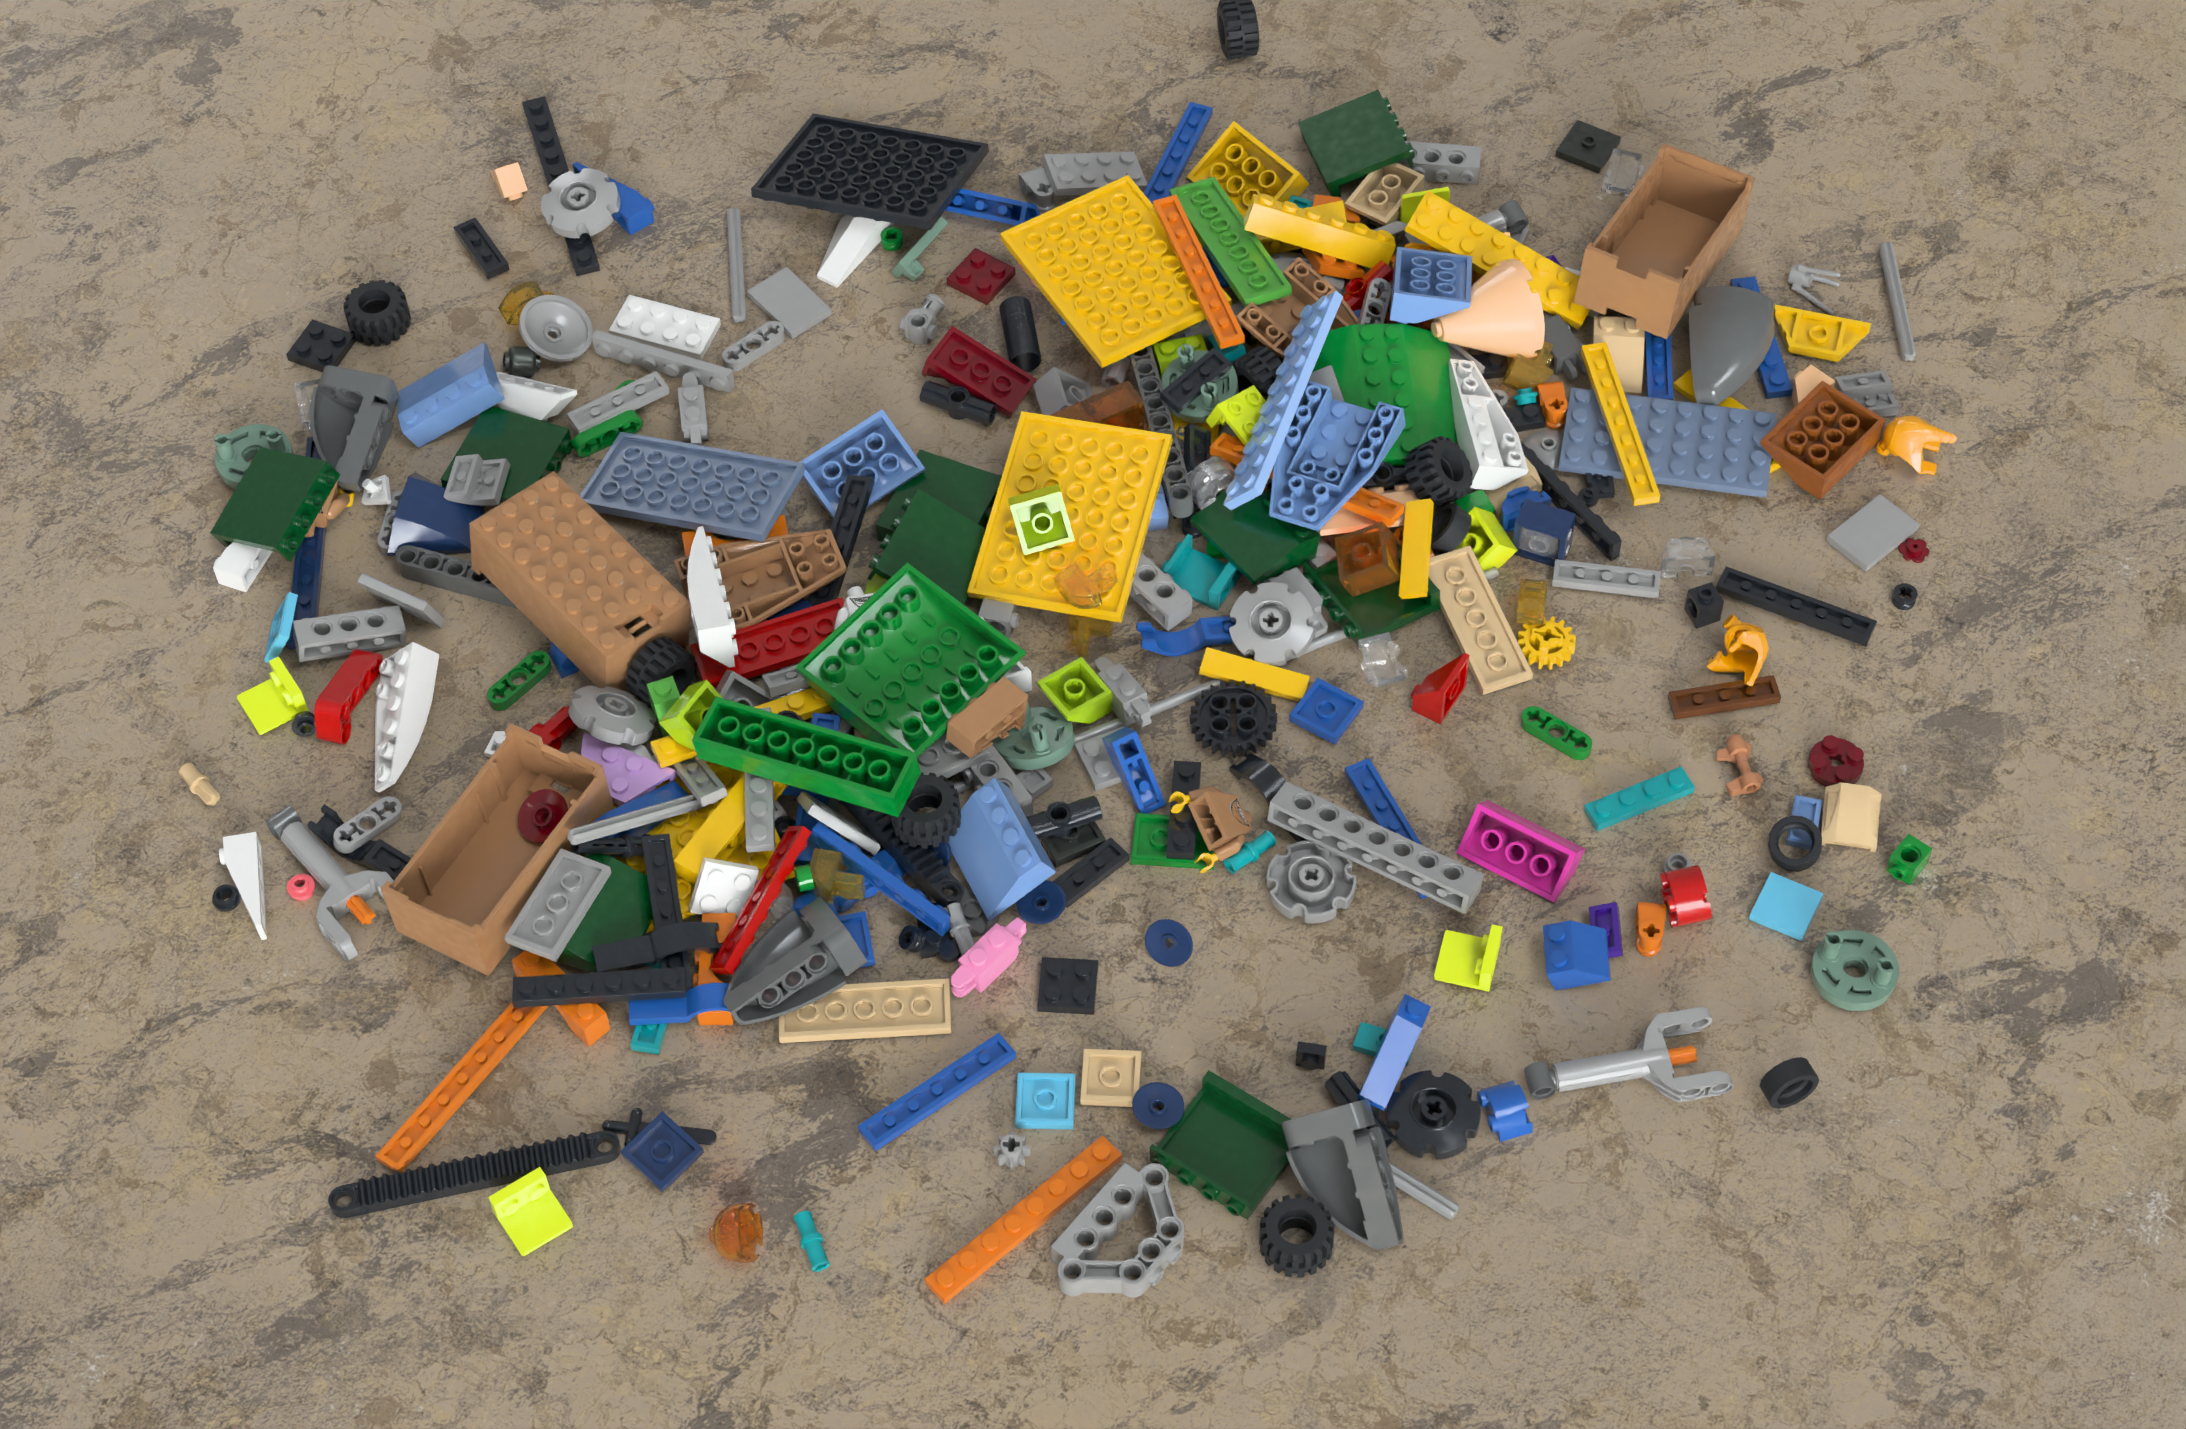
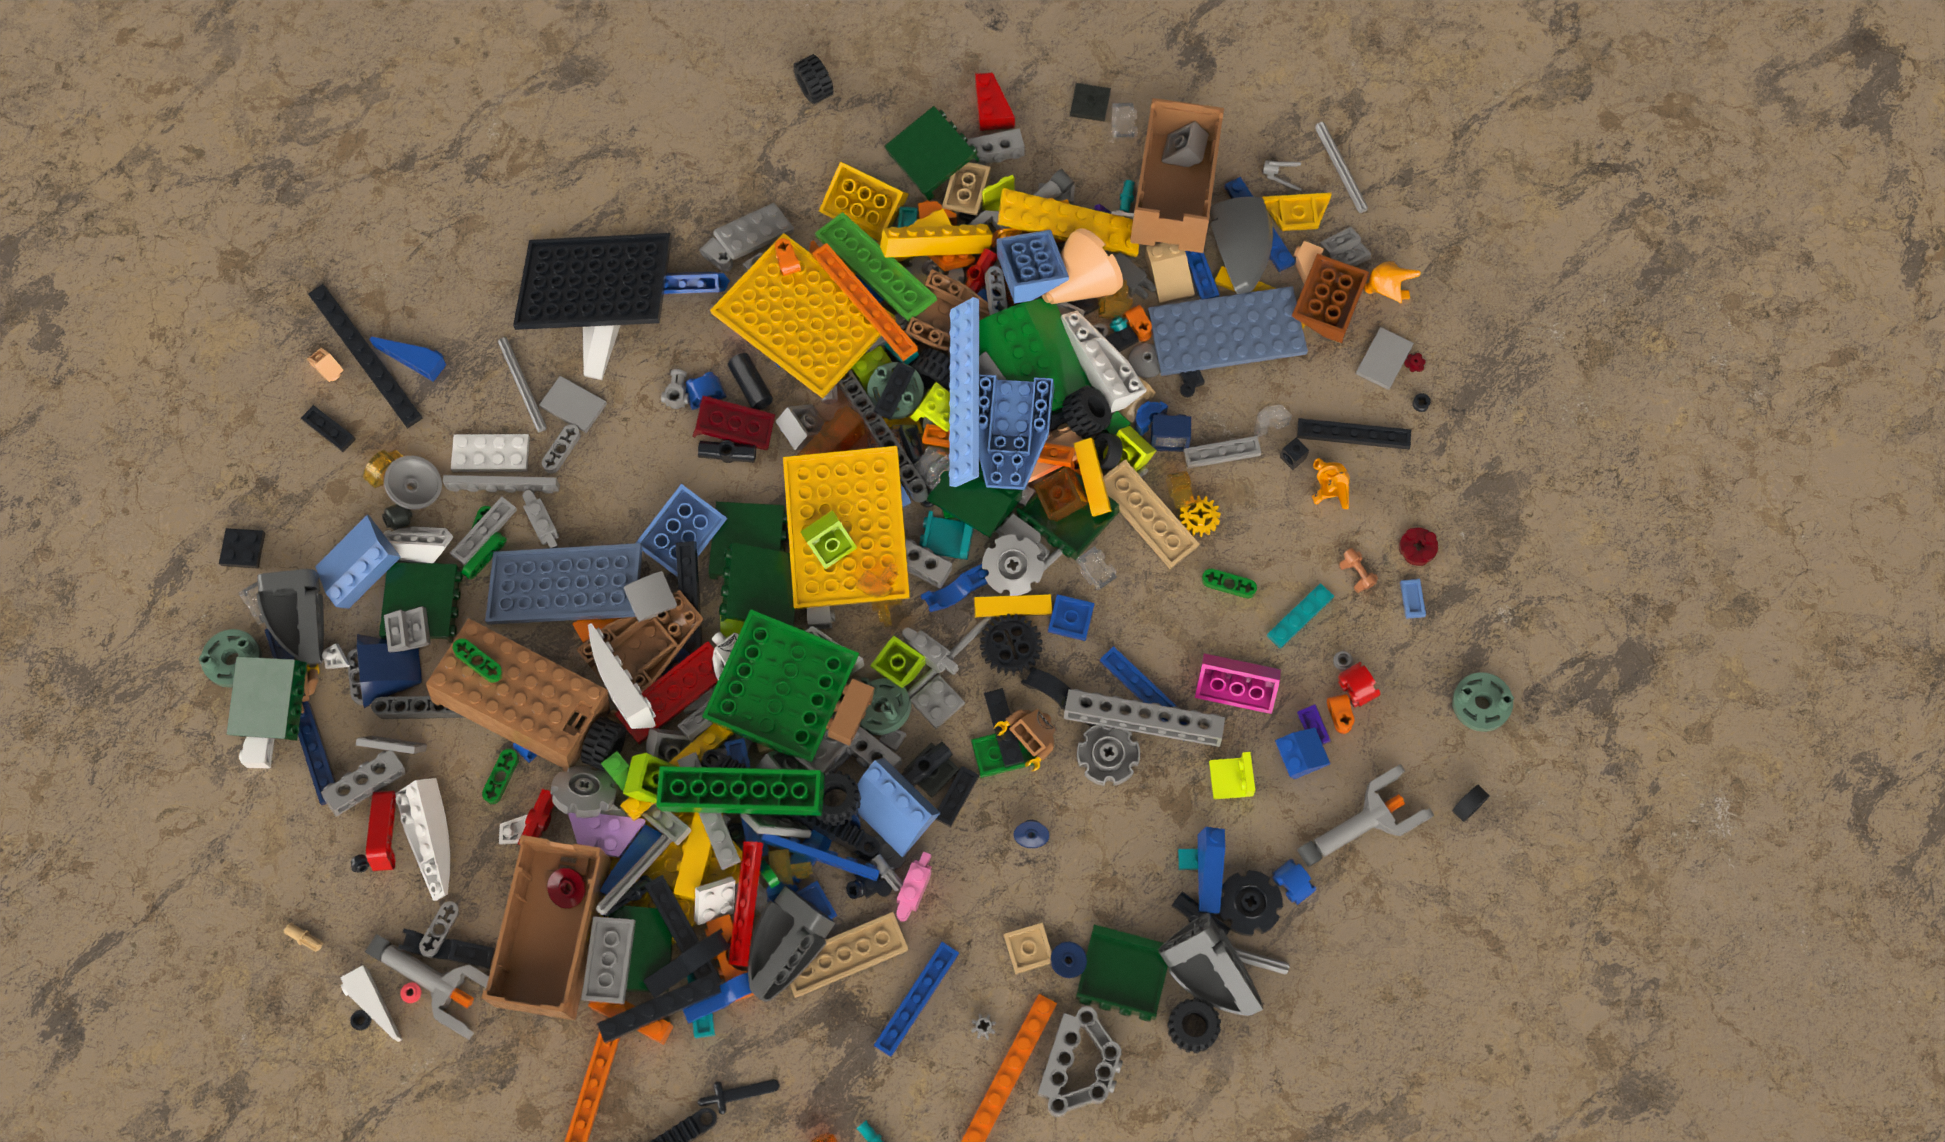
camera: 20 degrees left, 15 degrees up
(273, 700) = (328, 853): neon yellow bracket -> none
(281, 627) = (311, 795): medium azure tile -> none
(377, 312) = (264, 499): black tyre -> none
(541, 504) = (477, 668): none -> green beam
(580, 203) = (389, 372): light grey piece -> none
(662, 1152) = (748, 1111): dark blue plate -> none
(789, 520) = (650, 596): none -> light grey slope
(894, 244) = (628, 333): green bush -> none
(908, 264) = (647, 346): sand green hinge -> none
(964, 320) = (707, 385): none -> blue cylinder
(981, 276) = (702, 339): dark red plate -> none
(1045, 893) = (941, 839): dark blue piece -> none
(1045, 1101) = (990, 979): medium azure tile -> none
(1068, 985) = (973, 887): black plate -> none
(1119, 199) = (787, 259): none -> orange piece
(1134, 769) = (959, 709): blue slope -> none
(1178, 151) = (806, 197): blue plate -> none
(1250, 852) = (1059, 743): teal pin -> none
(1311, 1055) = (1155, 887): black plate -> none
(1441, 689) = (1141, 578): red slope -> none
(1456, 113) = (992, 105): none -> red wedge
(1563, 498) = (1182, 402): black plate -> none
(1620, 424) = (1193, 330): yellow plate -> none
(1693, 218) = (1185, 146): none -> light grey slope
(1723, 697) = (1329, 521): reddish brown plate -> none
(1786, 906) = (1422, 666): medium azure tile -> none
(1796, 822) = (1429, 619): black tyre -> none
(1851, 816) = (1442, 586): tan slope -> none
(1910, 850) = (1491, 599): green brick -> none

